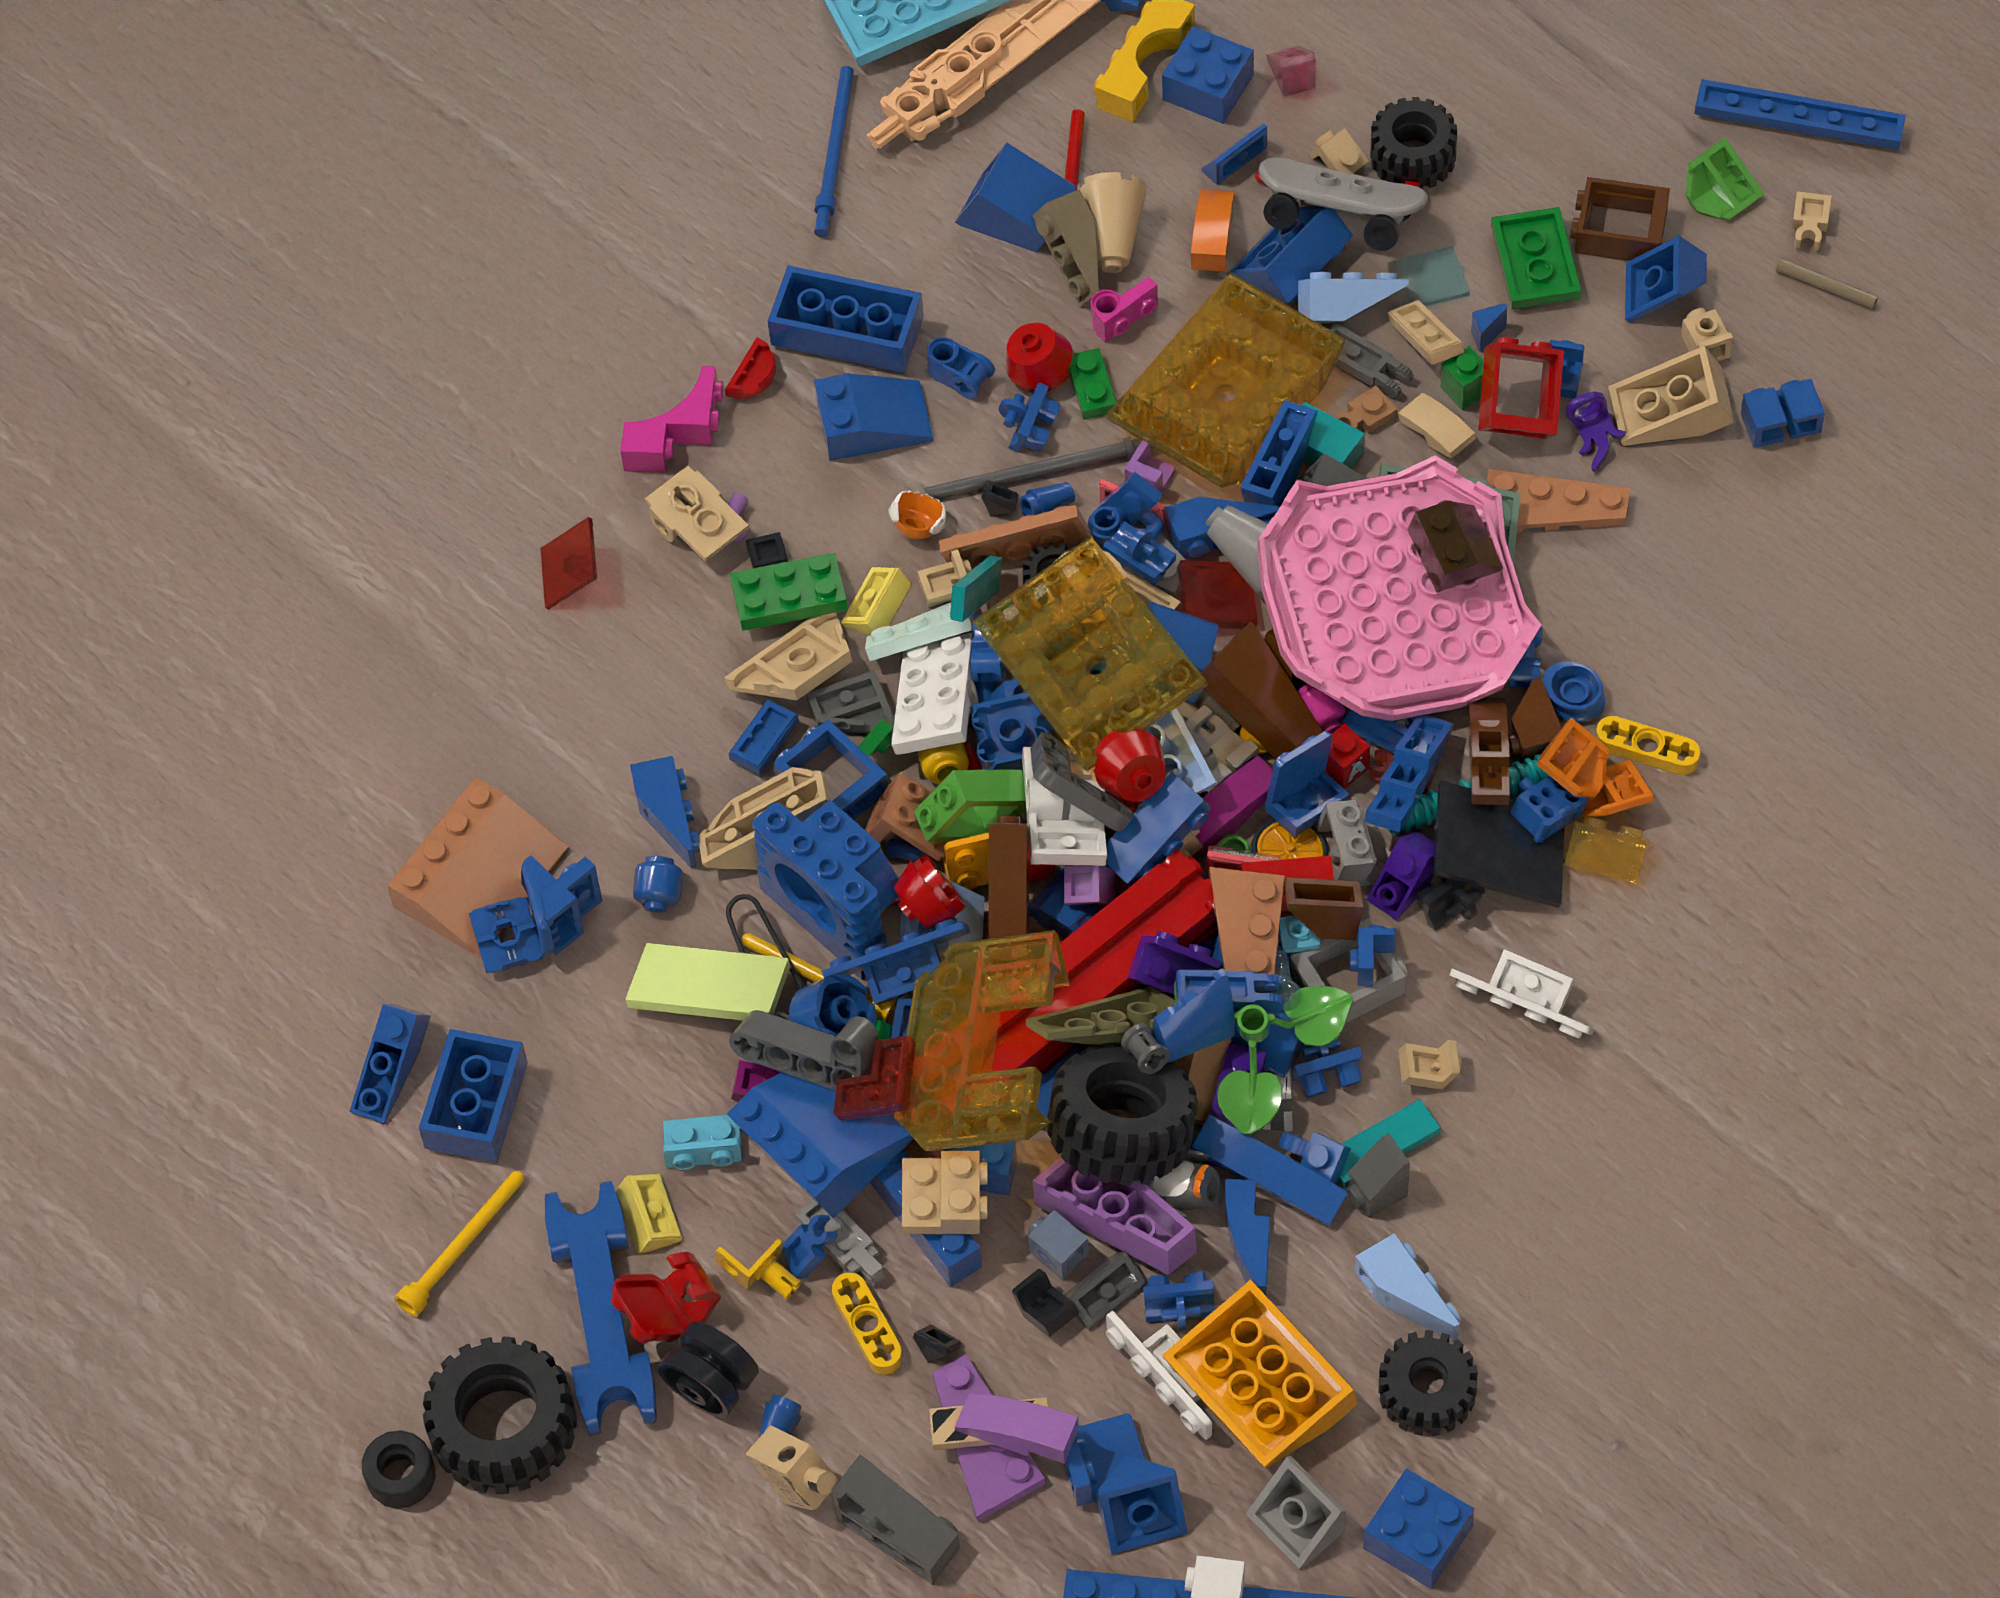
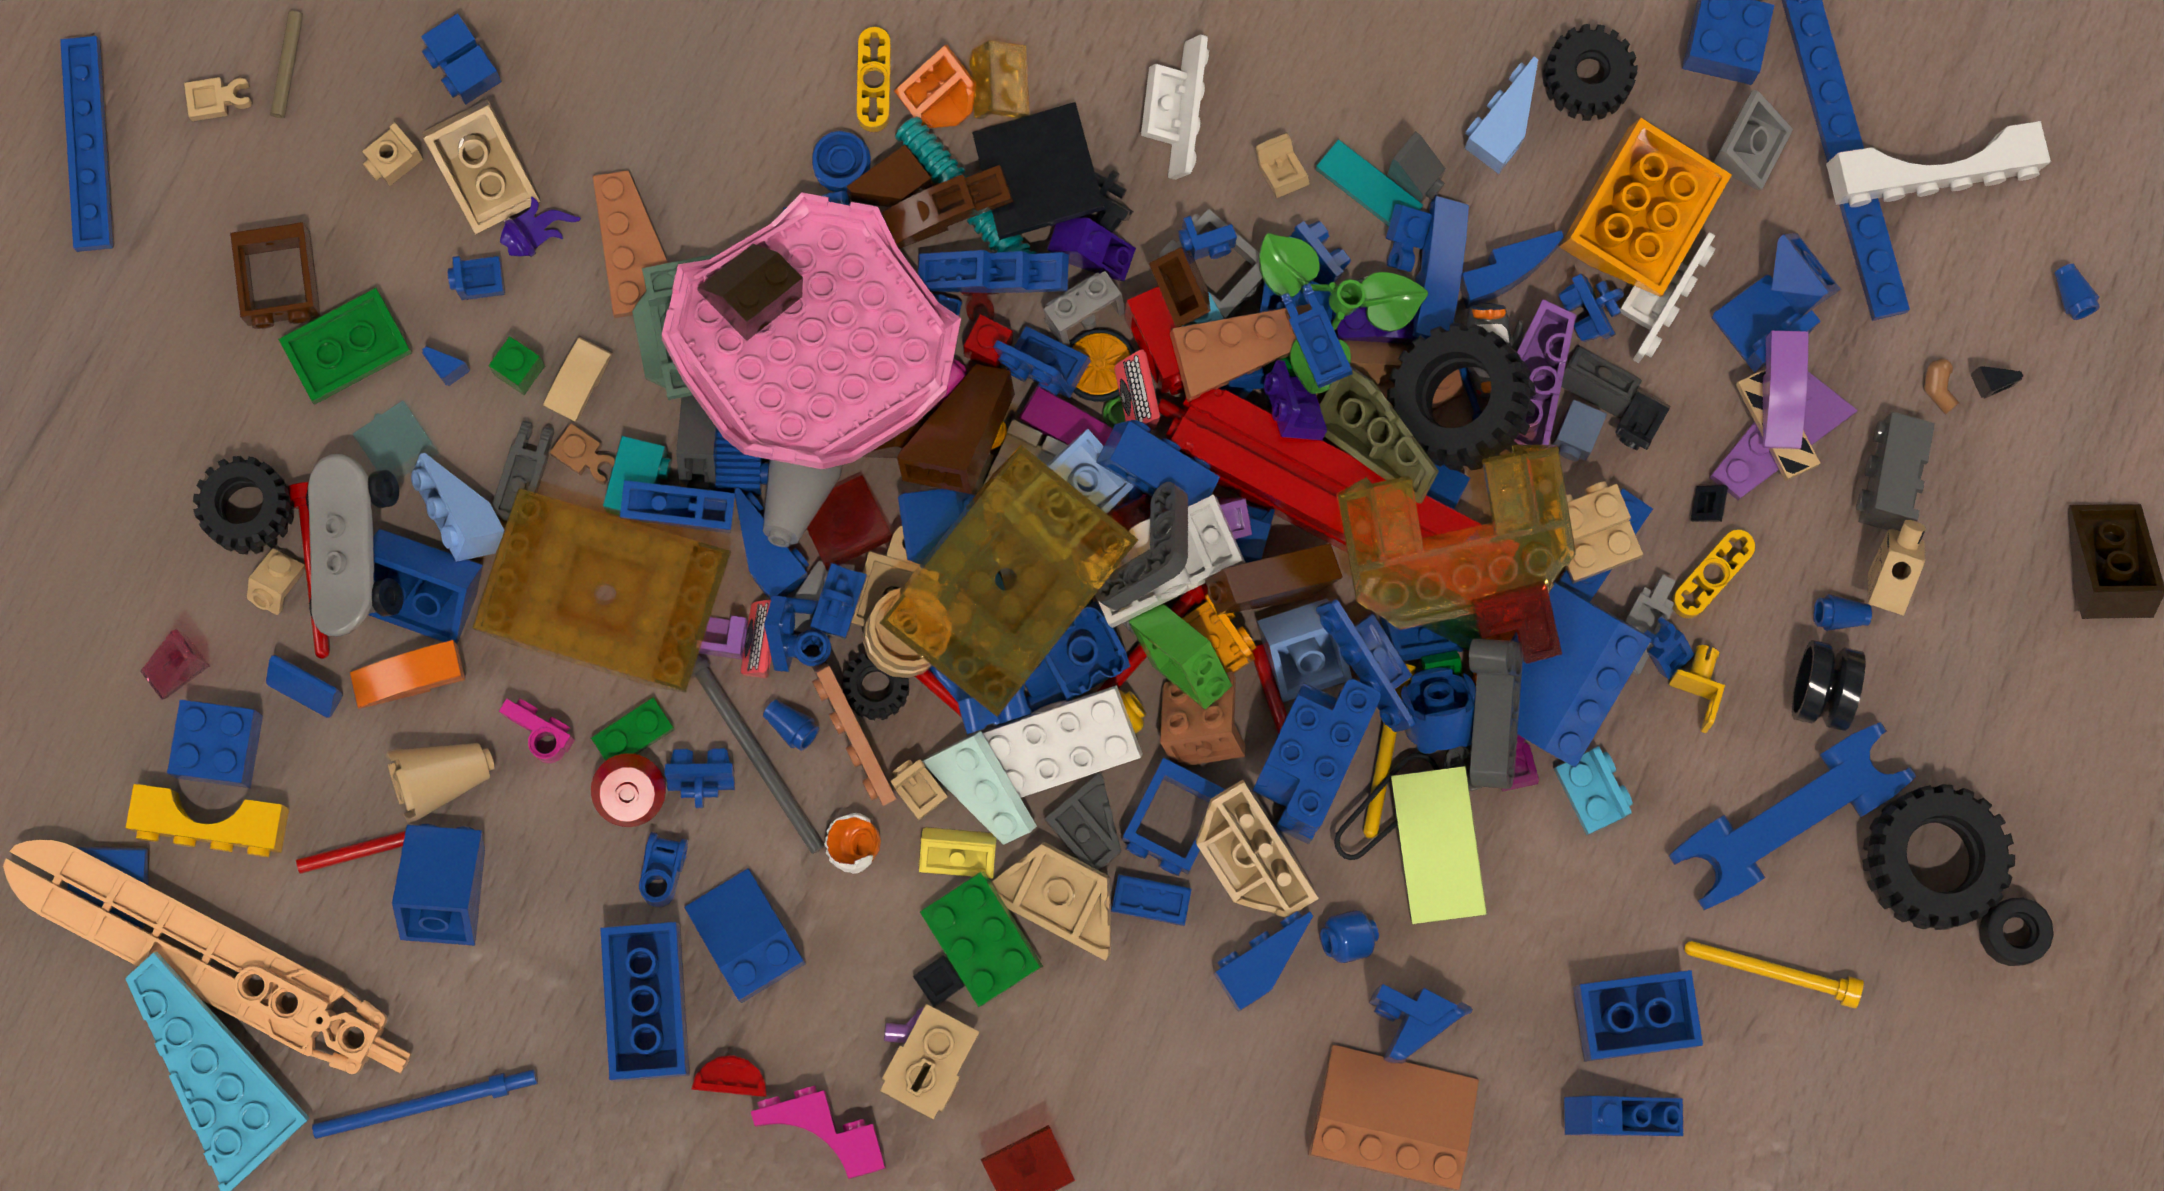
camera: 120 degrees left, 20 degrees up
(516, 952) = (1471, 1045): blue piece -> none
(648, 1212) = (1679, 813): light yellow slope -> none
(659, 1305) = (1780, 757): red piece -> none
(879, 738) = (1123, 782): green plate -> none
(927, 894) = (1308, 649): red cone -> none
(975, 588) = (934, 744): teal tile -> none
(998, 498) = (802, 771): black slope -> none
(1071, 237) = (476, 803): dark tan slope -> none
(1130, 764) = (1123, 494): red cone -> none
(1145, 1048) = (1405, 386): dark grey bush -> none
(1197, 1019) = (1363, 353): blue slope -> none
(1290, 991) = (1273, 300): clear light blue bar -> none
(1425, 332) = (479, 417): tan tile -> none
(1546, 807) = (981, 139): blue piece -> none
(1547, 422) = (521, 274): red window -> none
(1576, 760) = (932, 127): orange slope -> none
(1663, 276) = (340, 213): blue slope -> none
(1720, 182) = (199, 193): bright green slope -> none

